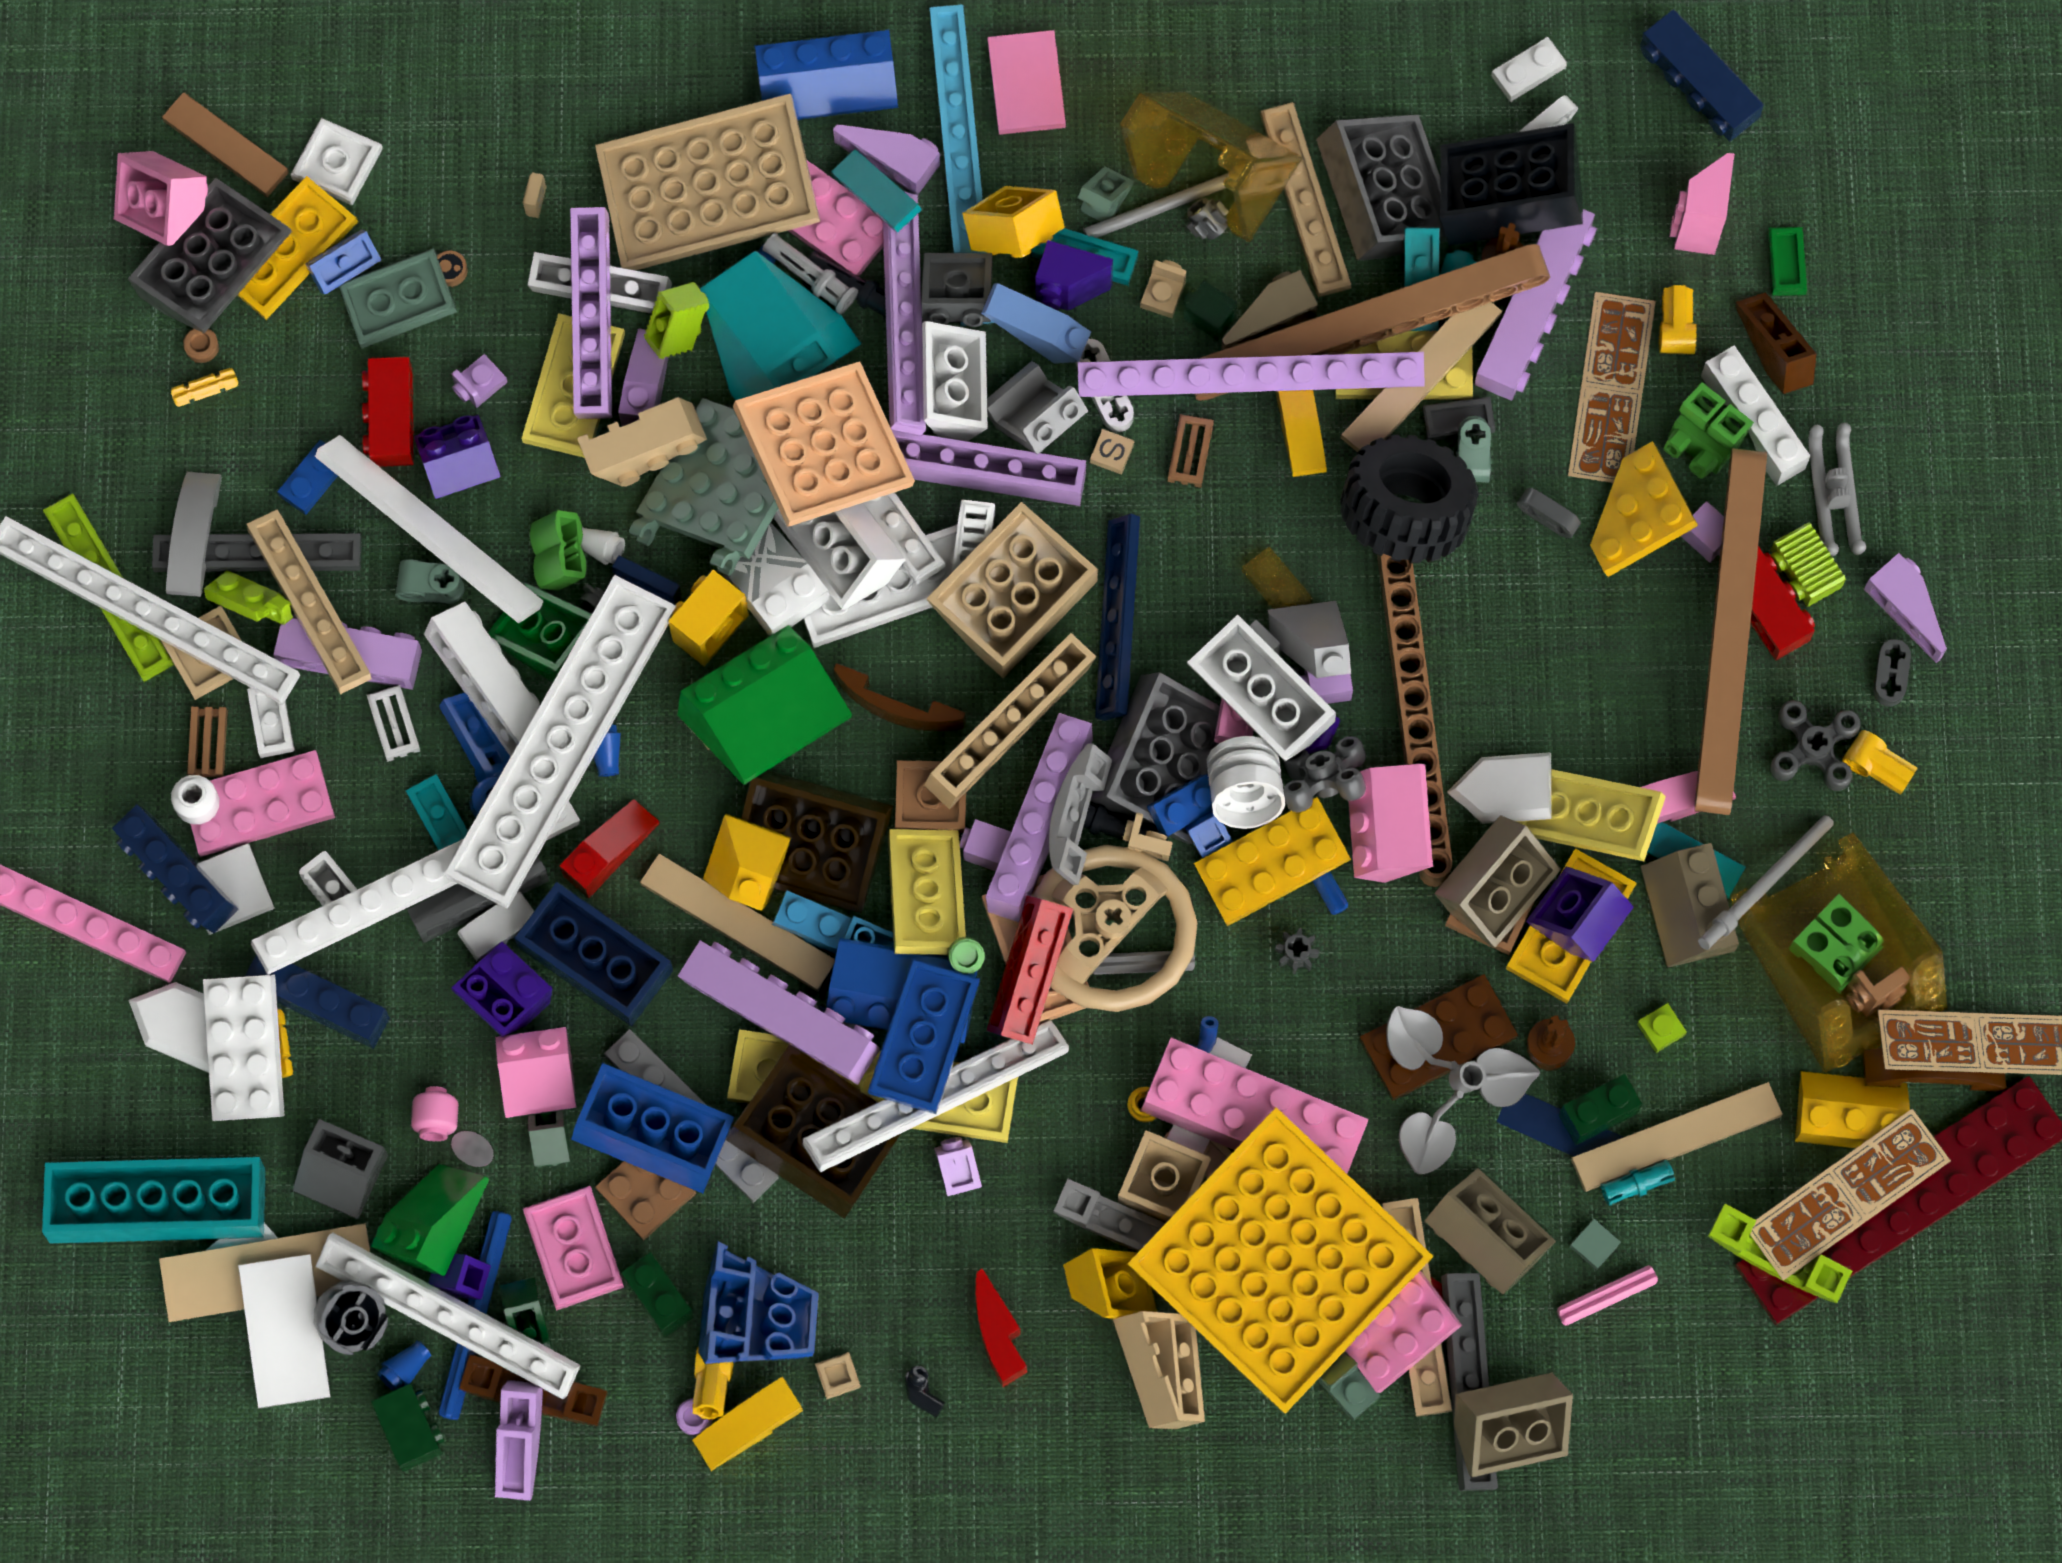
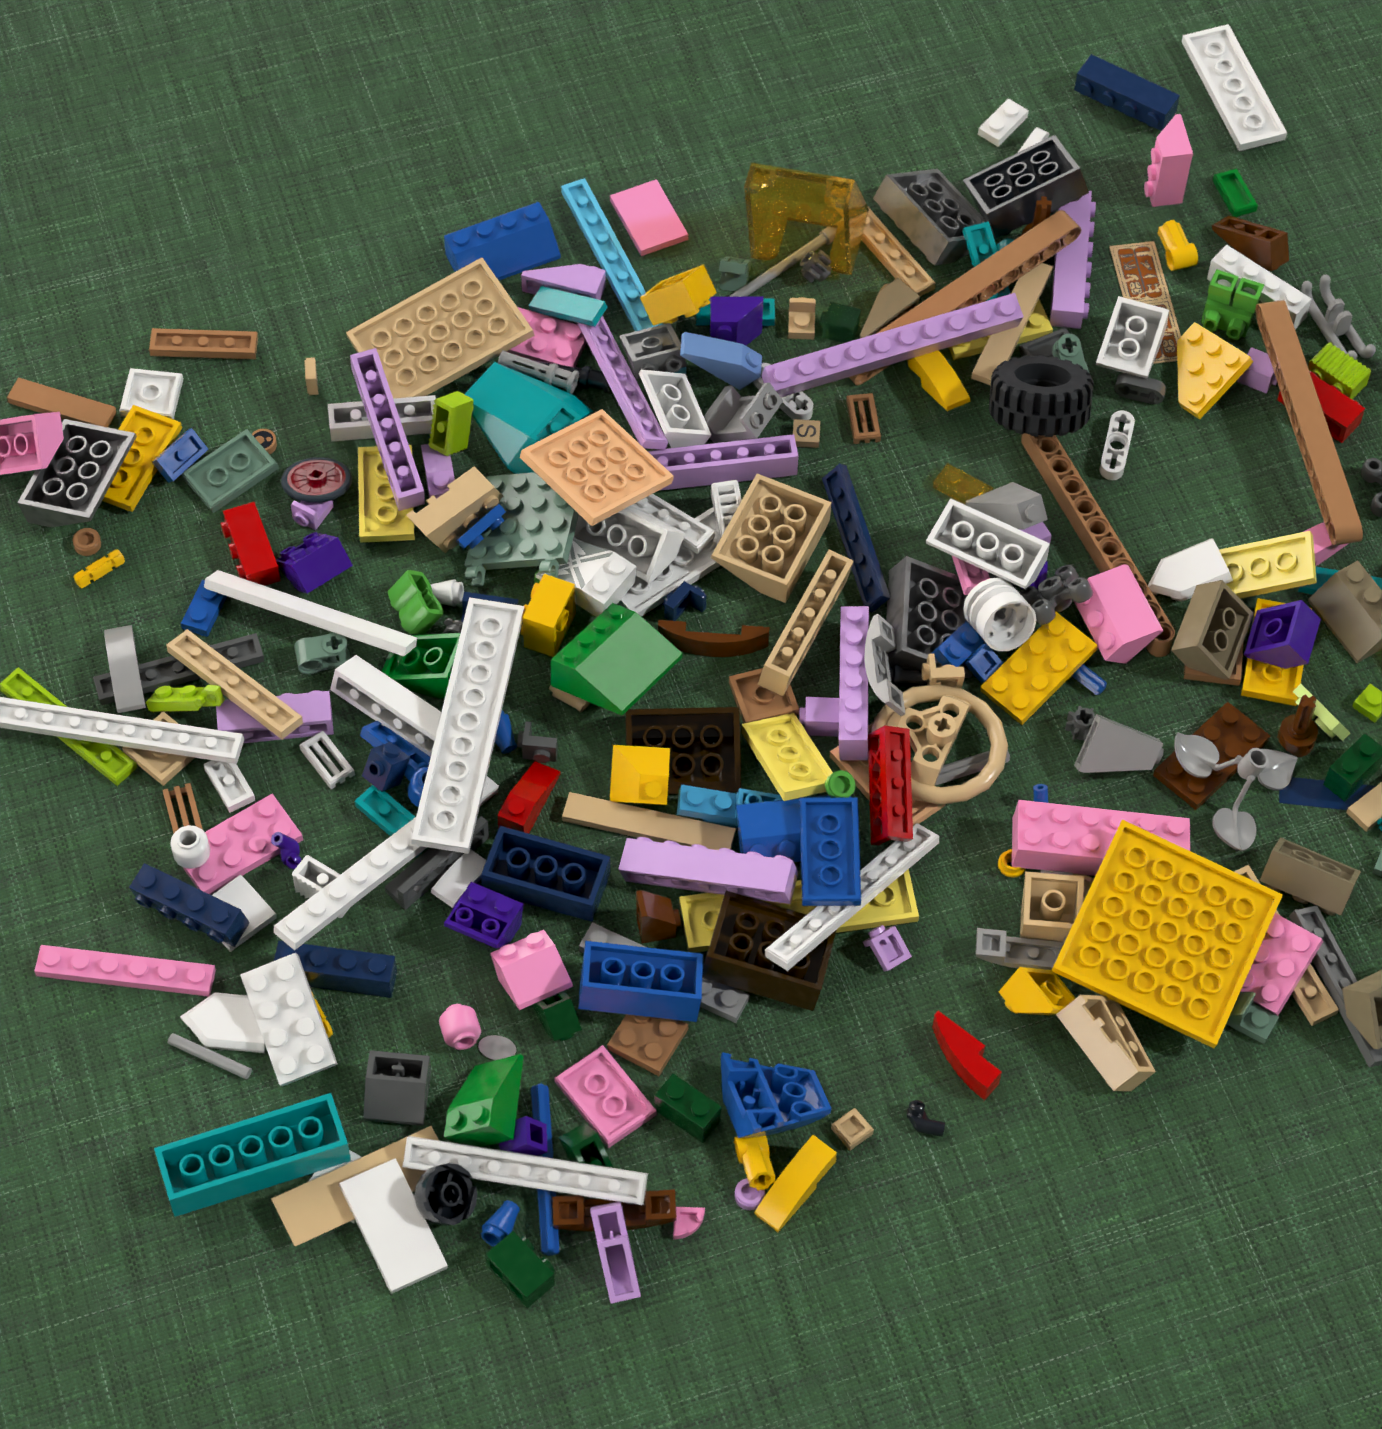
camera: 20 degrees left, 15 degrees down
(134, 1047) = (209, 1056): none -> light grey bar
(311, 829) = (288, 849): none -> dark purple arm
(419, 109) = (203, 343): none -> medium nougat plate
(453, 760) = (385, 766): none -> dark blue brick
(475, 347) = (316, 480): none -> wheel
(613, 1427) = (687, 1221): none -> bright pink tile
(642, 788) = (536, 747): none -> dark grey bracket
(654, 481) = (473, 535): none -> blue plate
(701, 1048) = (655, 917): none -> reddish brown slope
(871, 640) = (678, 601): none -> dark blue bracket
(1323, 999) = (1117, 748): none -> light grey slope
(1485, 607) = (1119, 454): none -> white beam
(1561, 446) = (1133, 337): none -> white slope
(1586, 1028) = (1325, 719): none -> yellowish green plate
(1848, 103) = (1234, 87): none -> white plate

